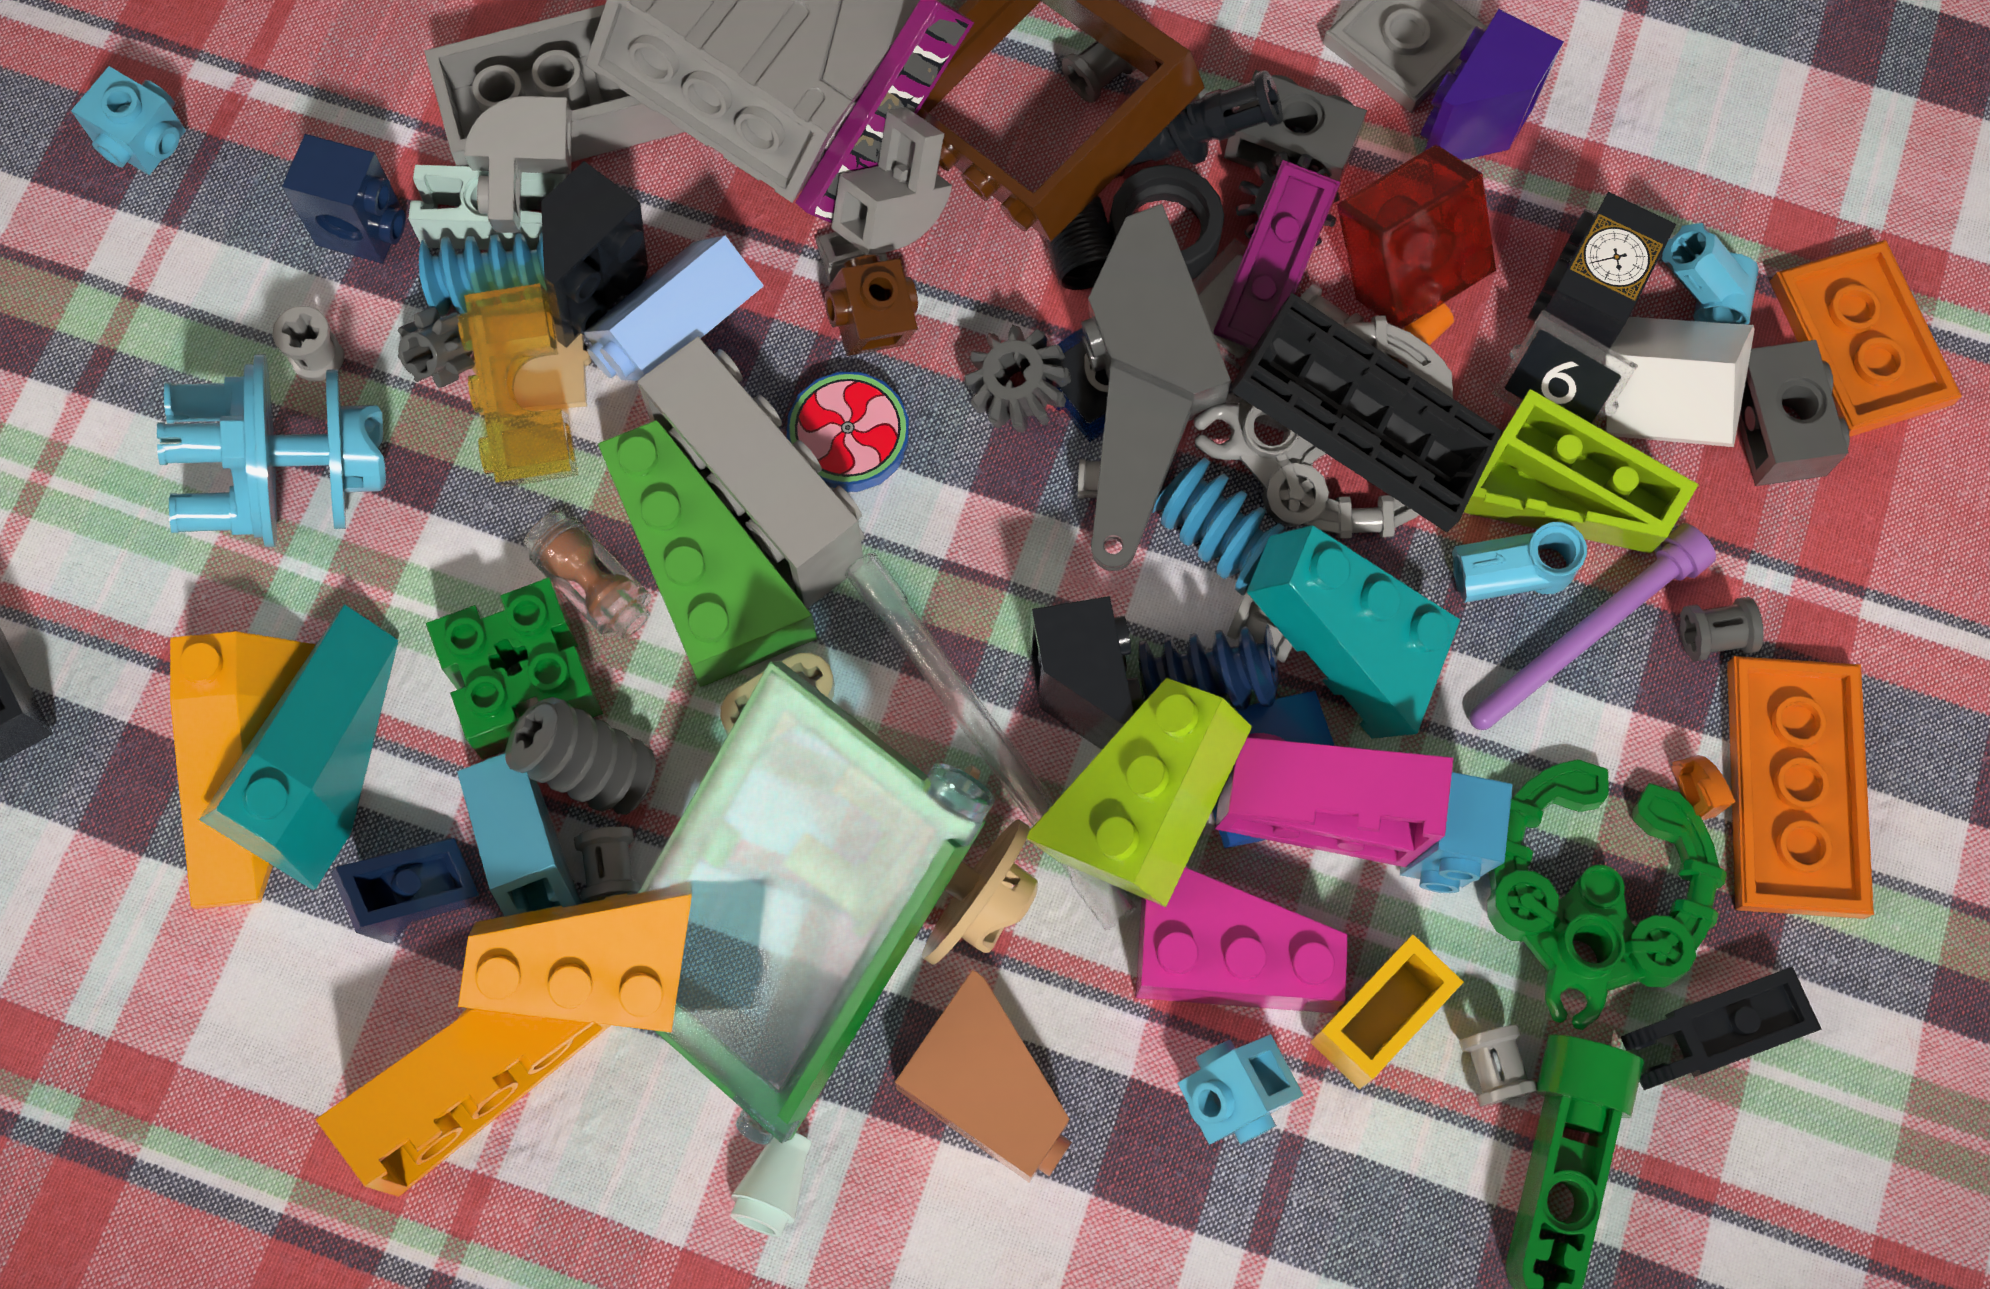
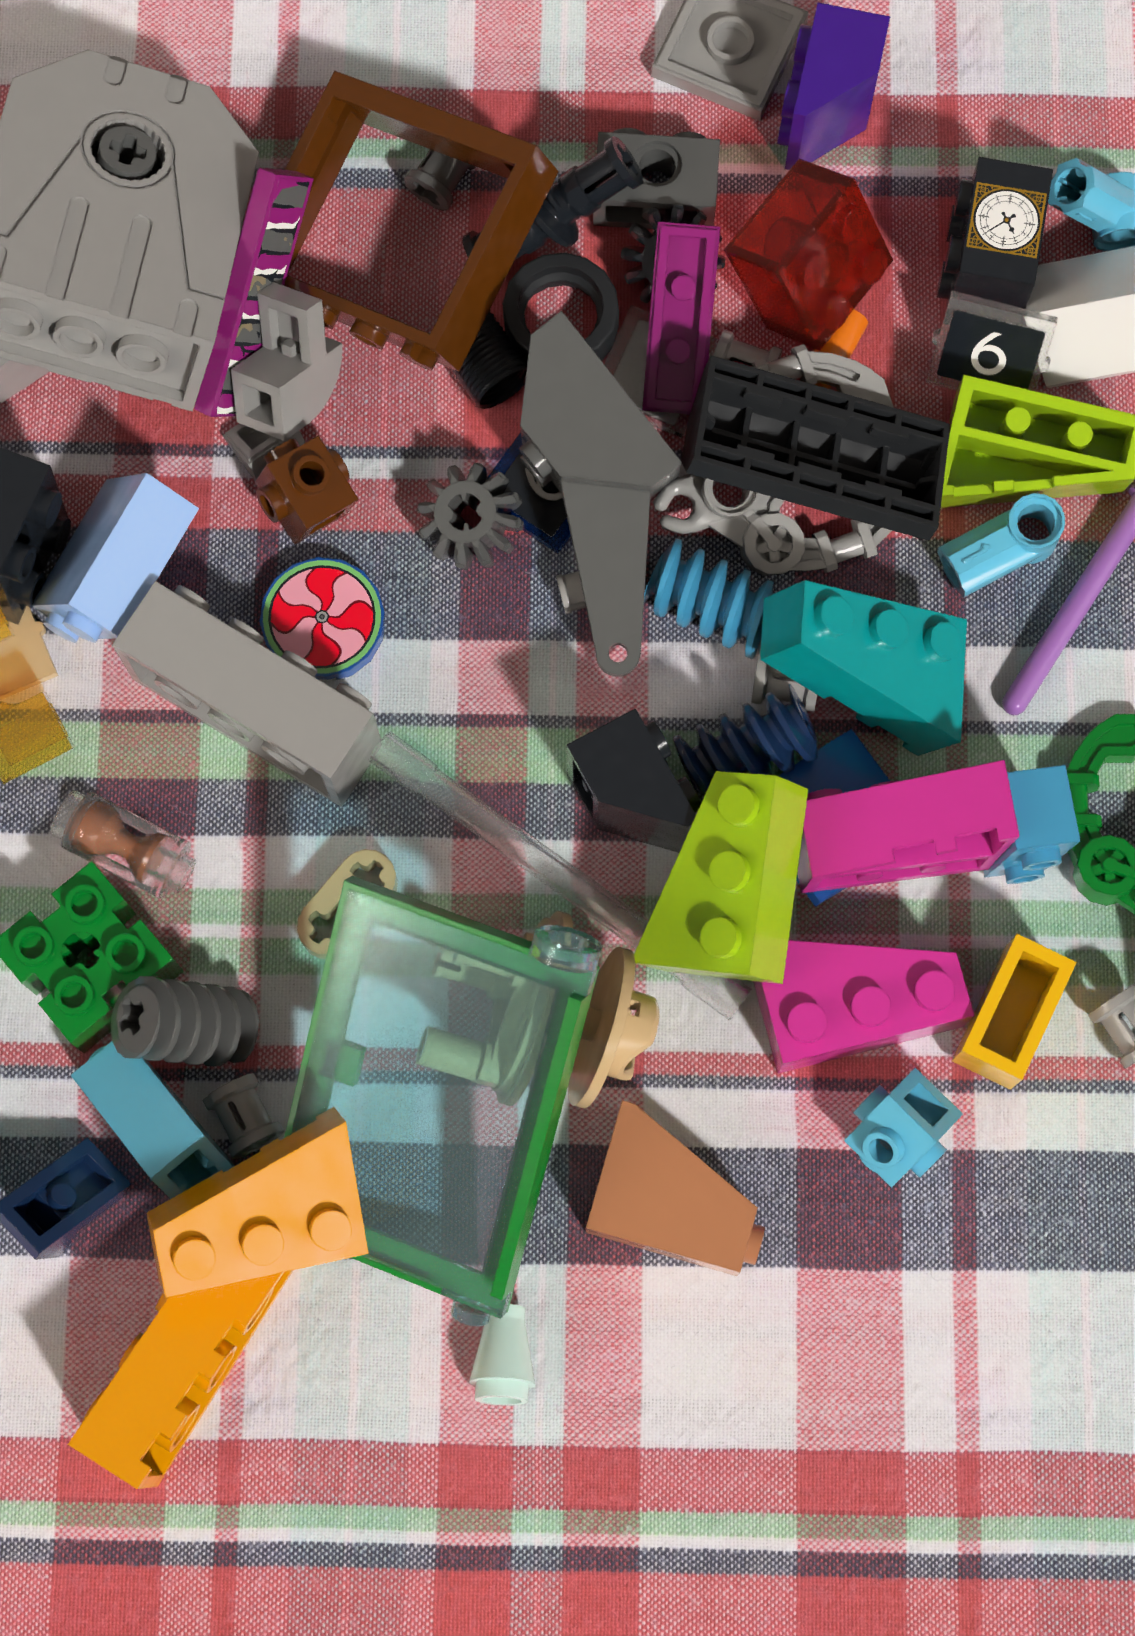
camera: 15 degrees left, 5 degrees up
(709, 571) = (237, 801): bright green wedge -> none

